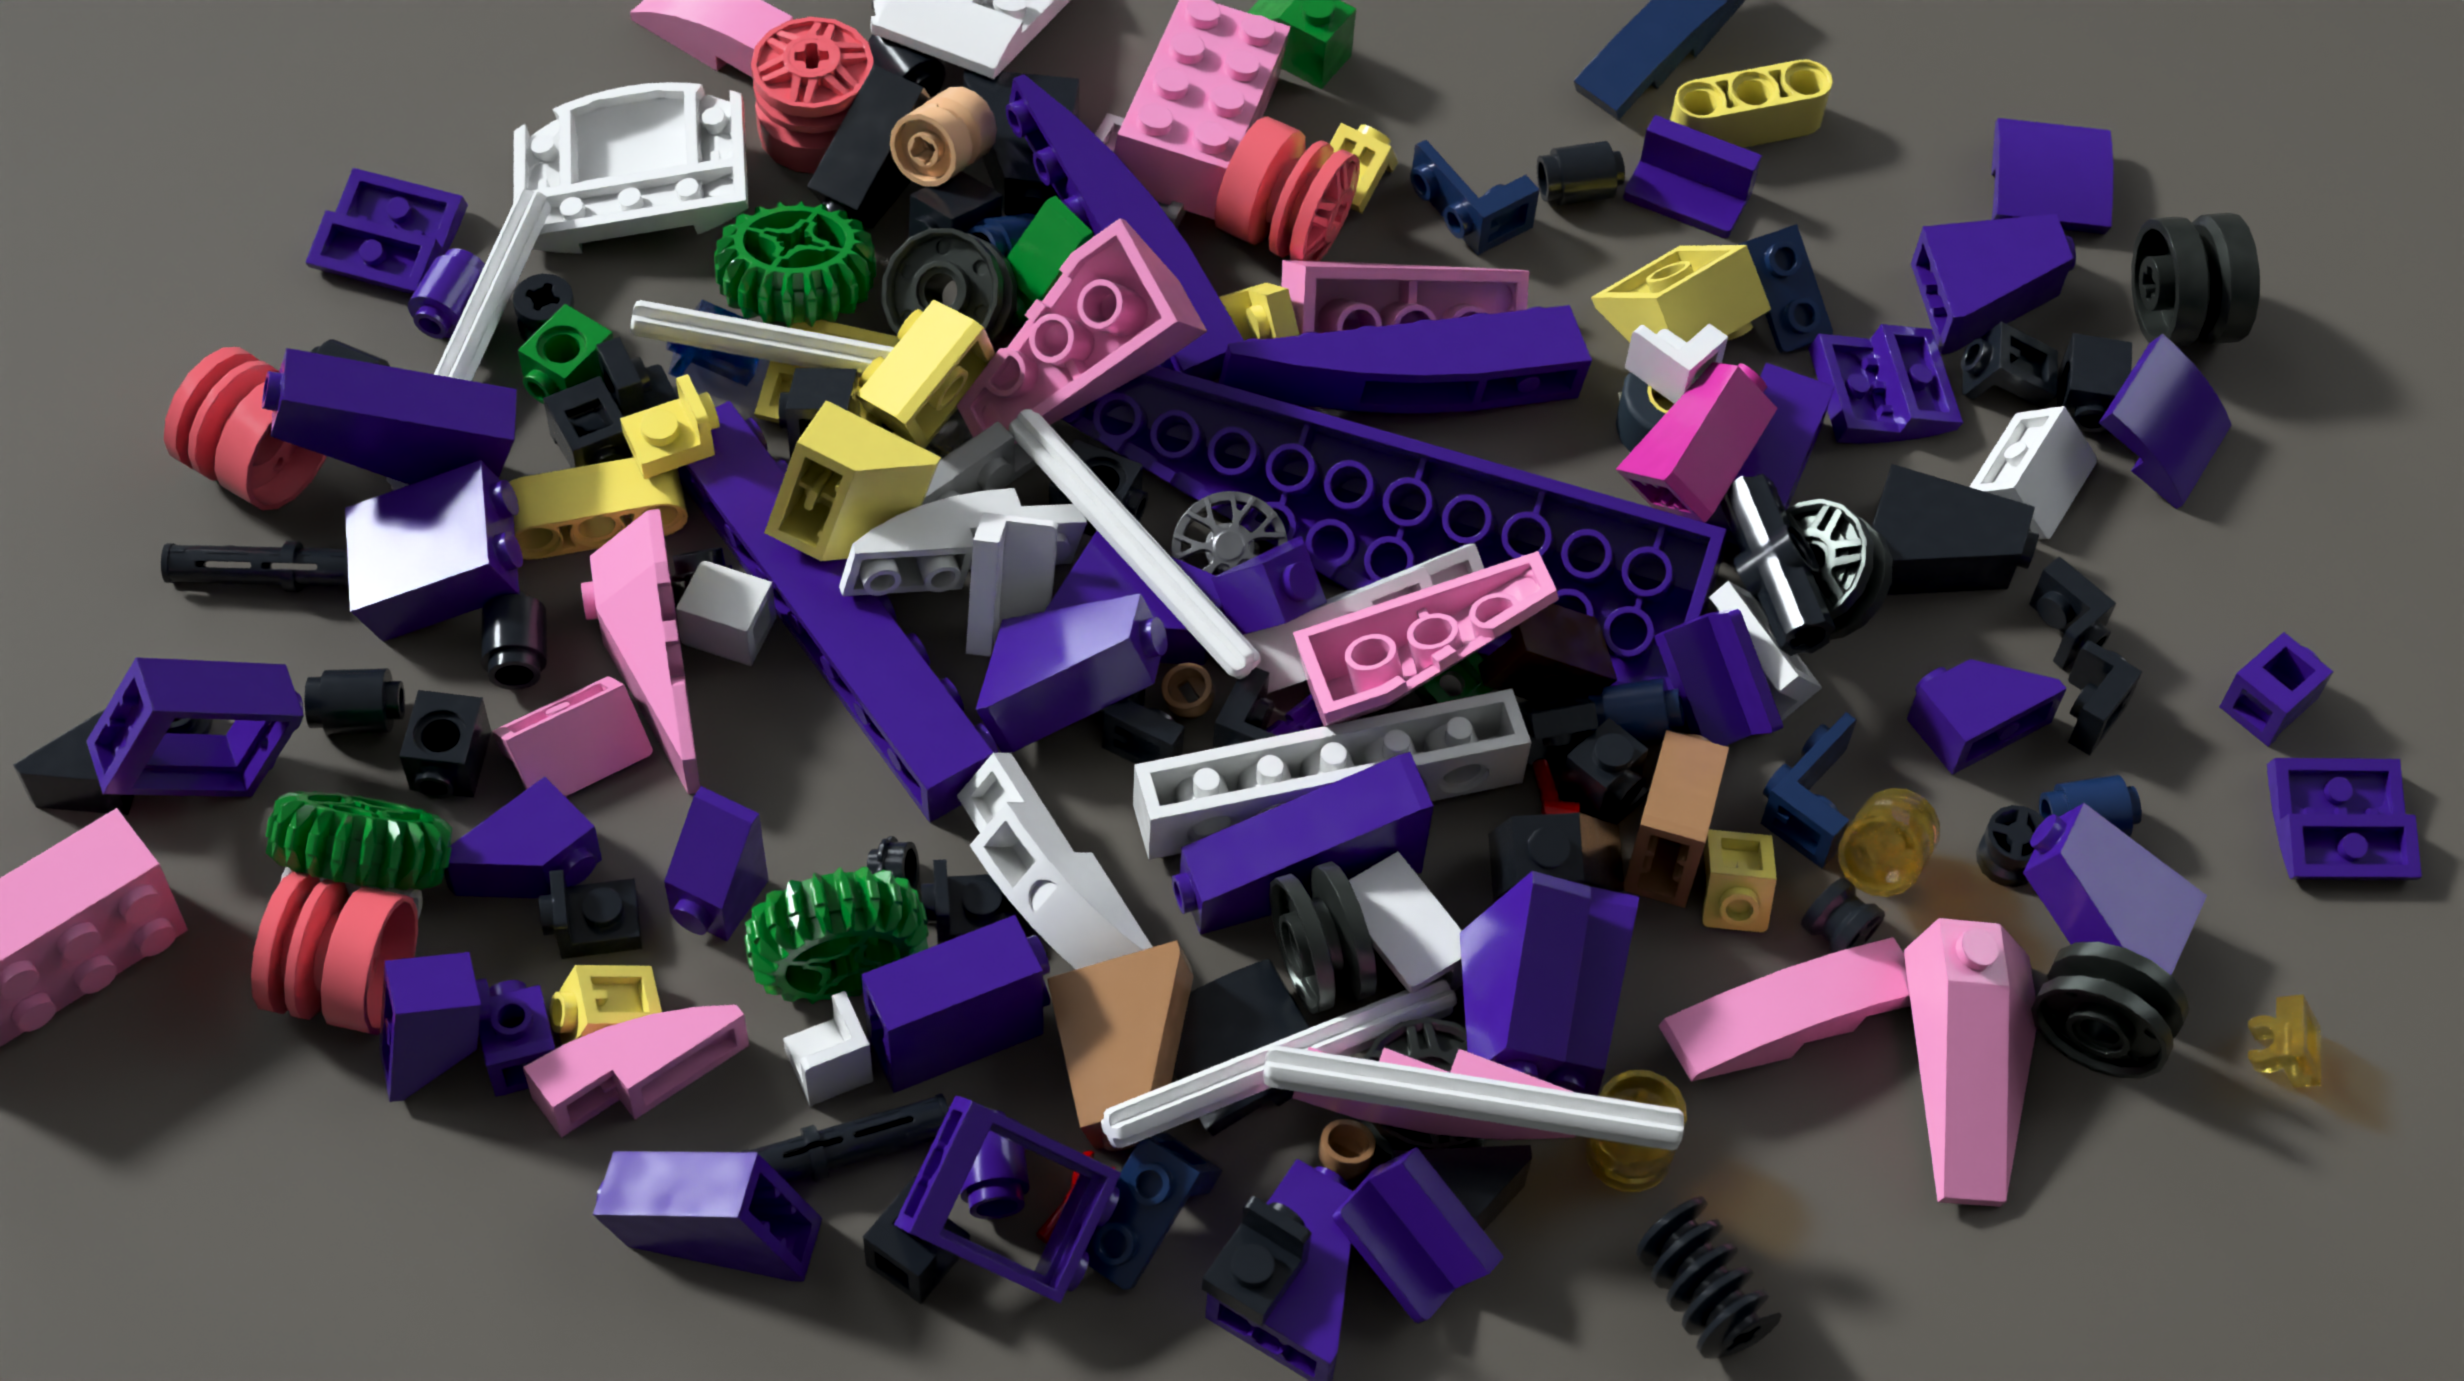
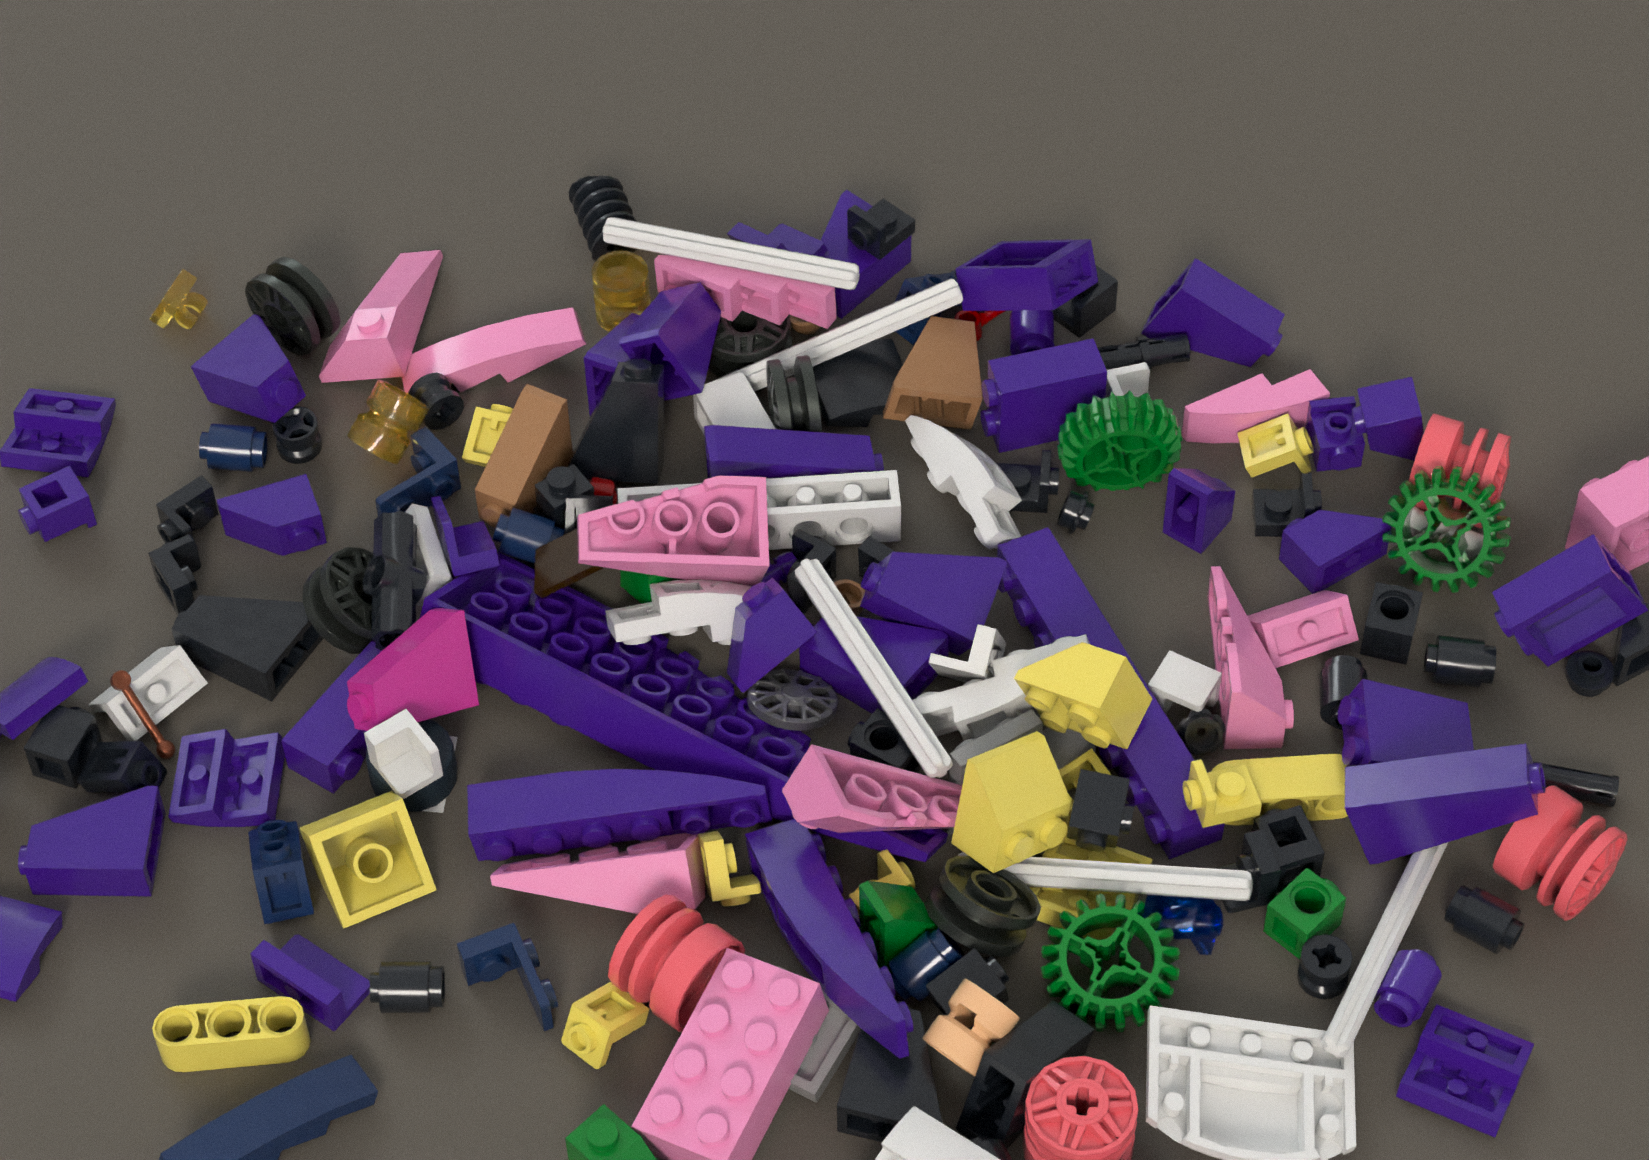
camera: 165 degrees left, 5 degrees down
(2058, 422) = (121, 681): none -> copper hinge

